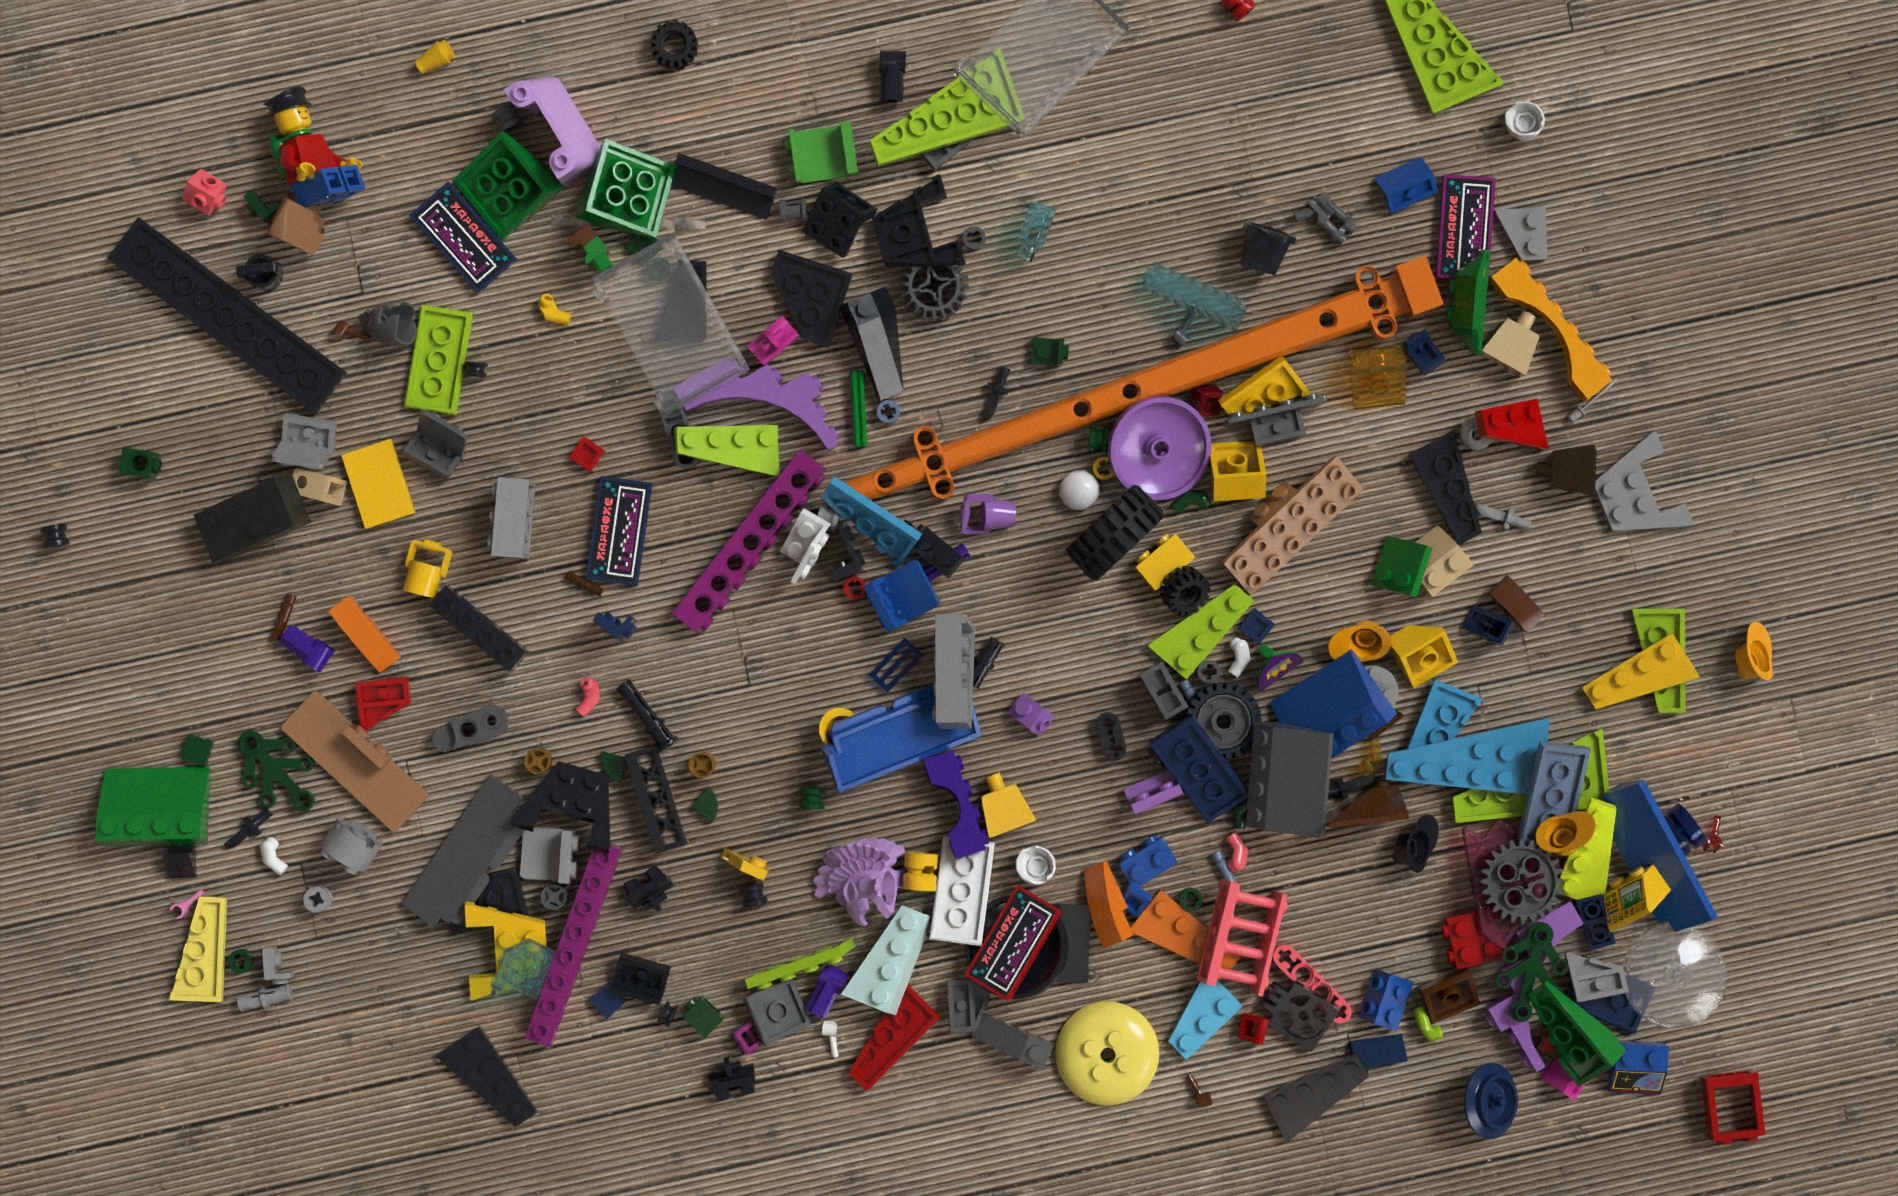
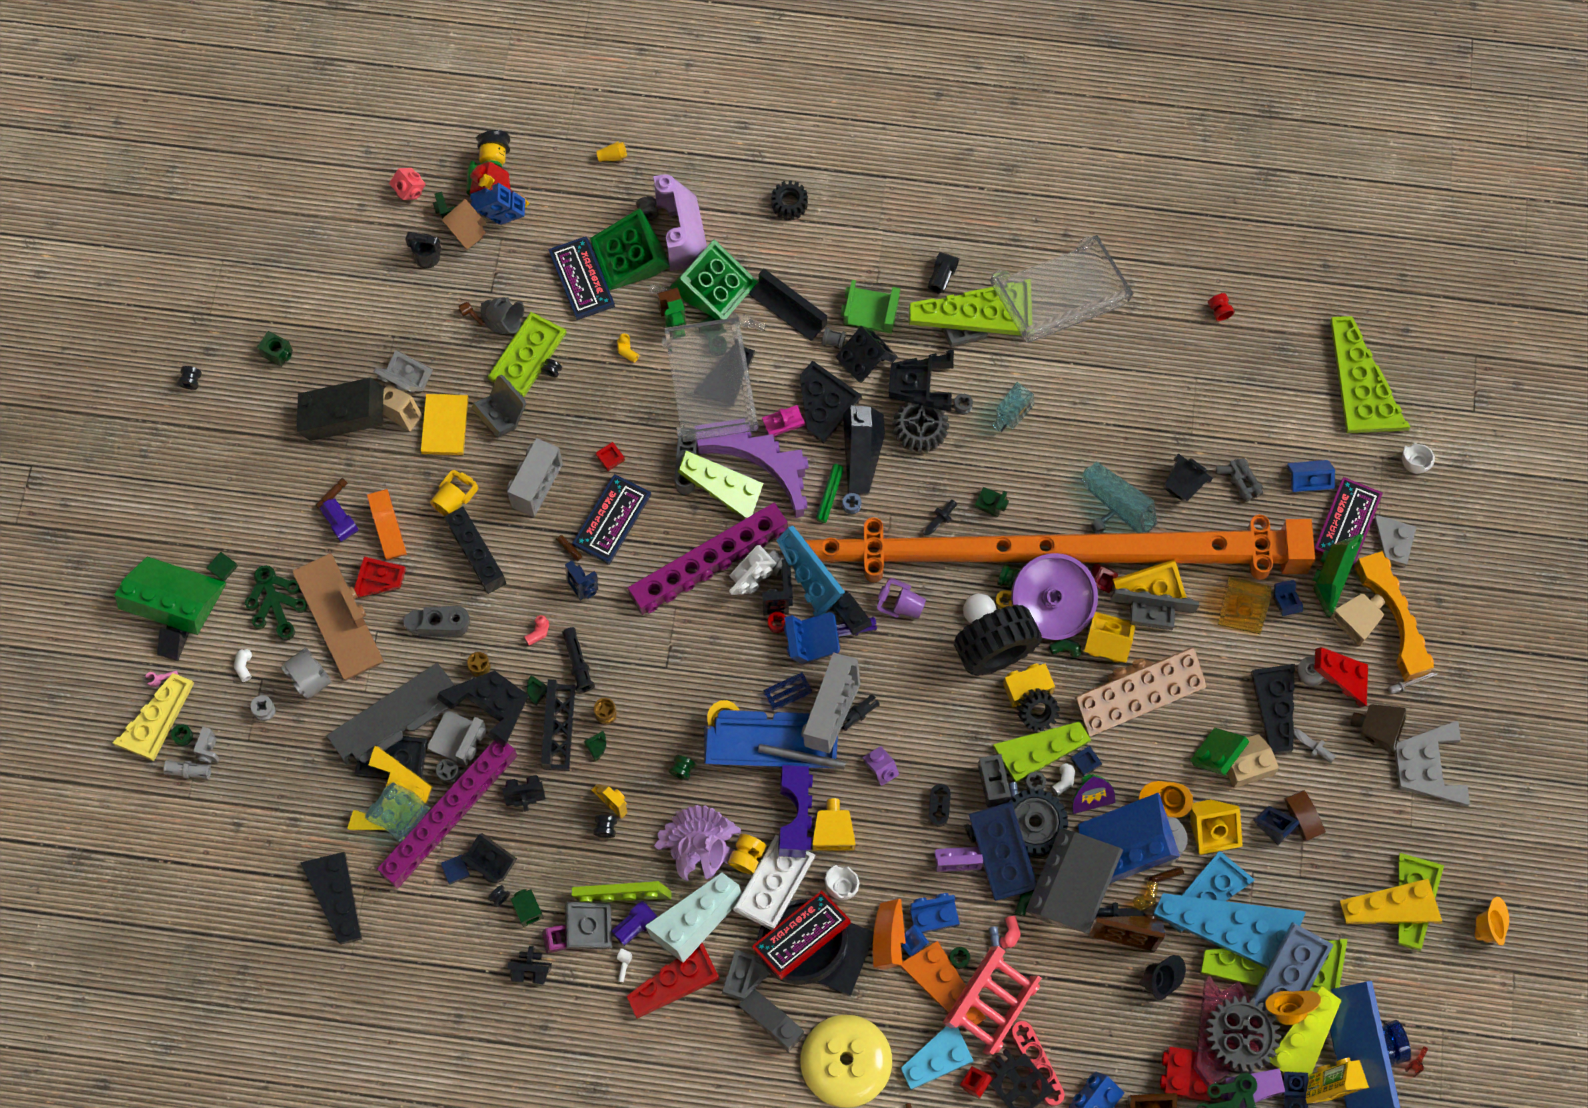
camera: 25 degrees right, 20 degrees down
(227, 315) = (386, 273): black plate -> none
(252, 826) = (237, 636): black piece -> none
(940, 740) = (800, 756): none -> flat silver bar

